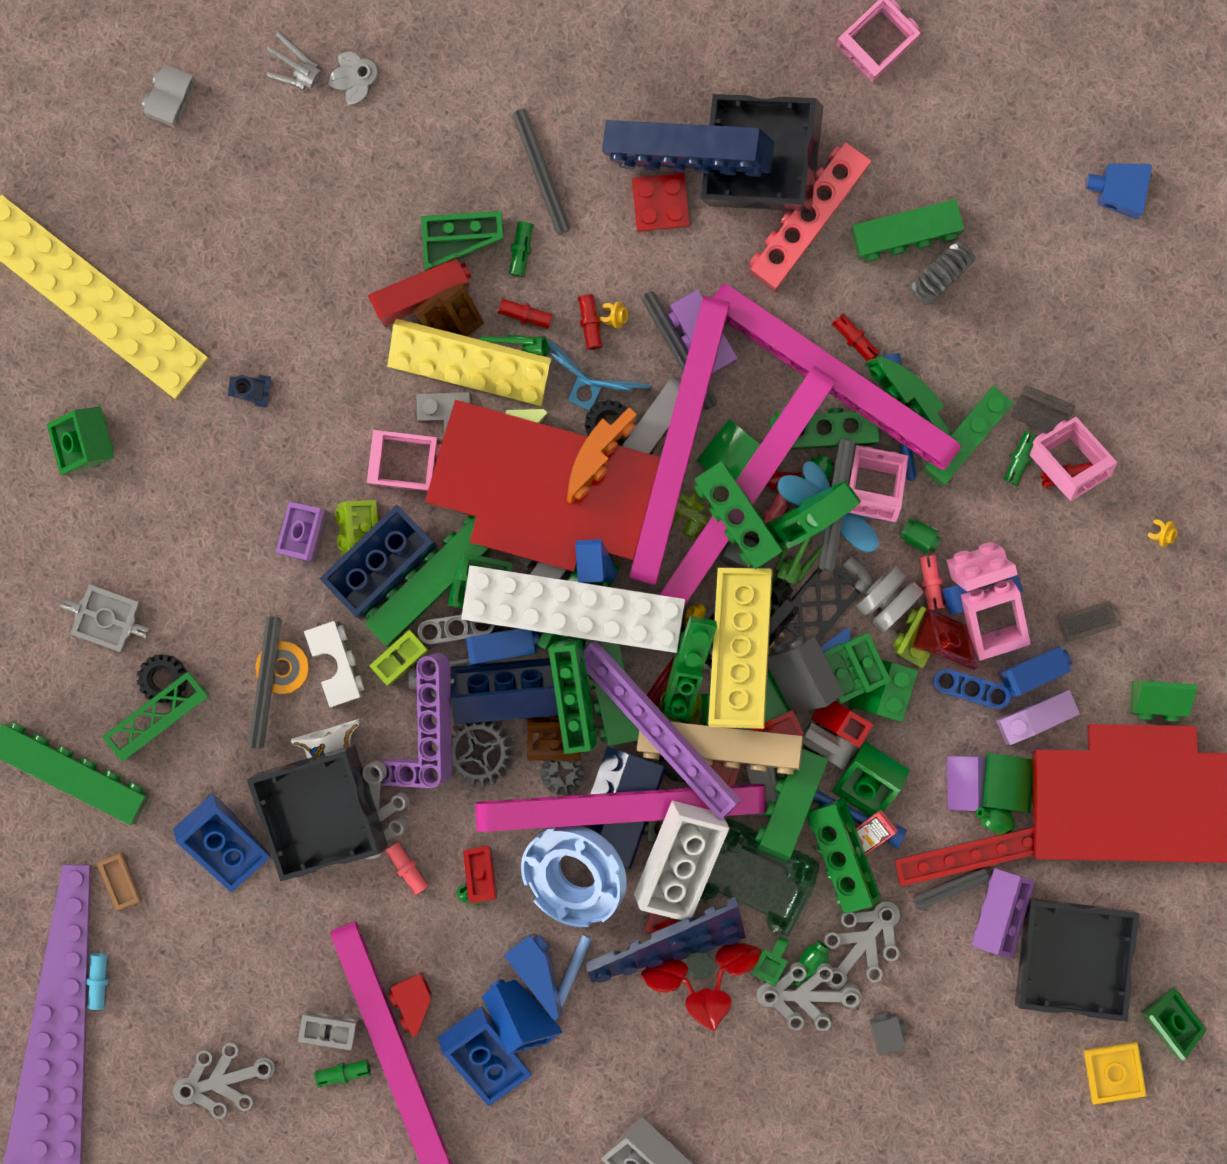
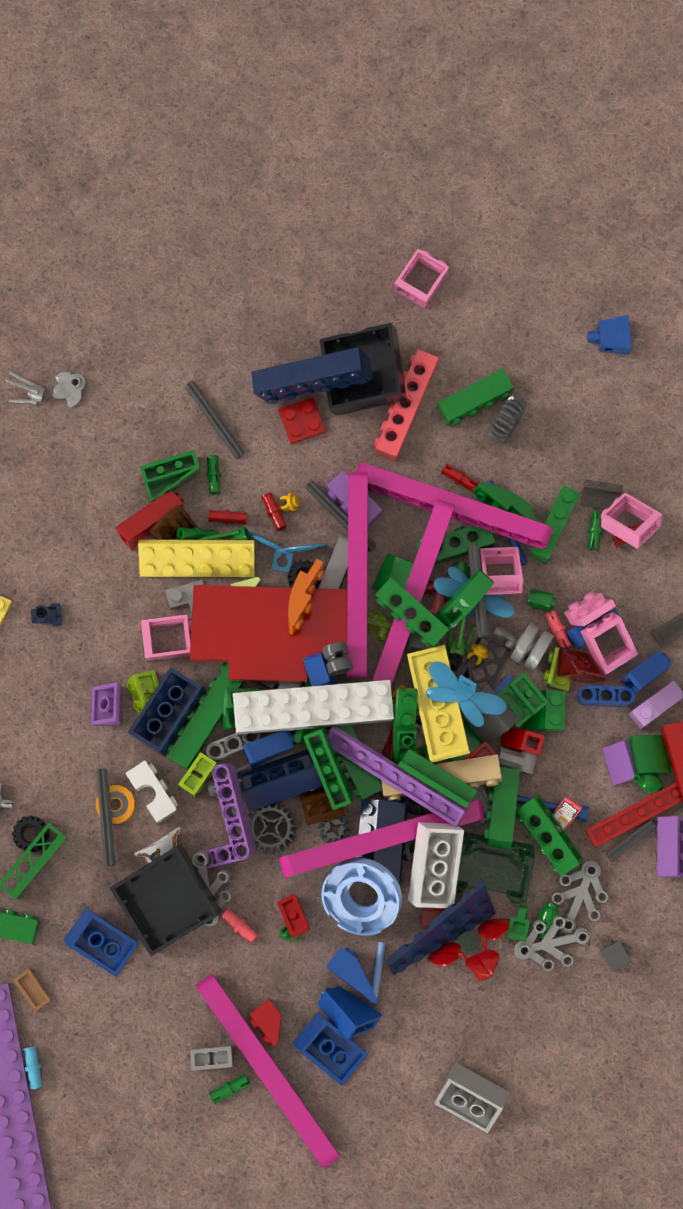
camera: 25 degrees left, 10 degrees down
(219, 1081) = (140, 1119): light grey plant -> none
(474, 328) = (194, 534): none -> green pin
(624, 562) = (337, 665): none -> dark grey wheel
(713, 749) = (437, 778): none -> green fence
(774, 640) = (470, 701): none -> dark azure piece
(818, 585) = (480, 651): none -> yellow plate
(871, 780) = (553, 777): green slope -> none

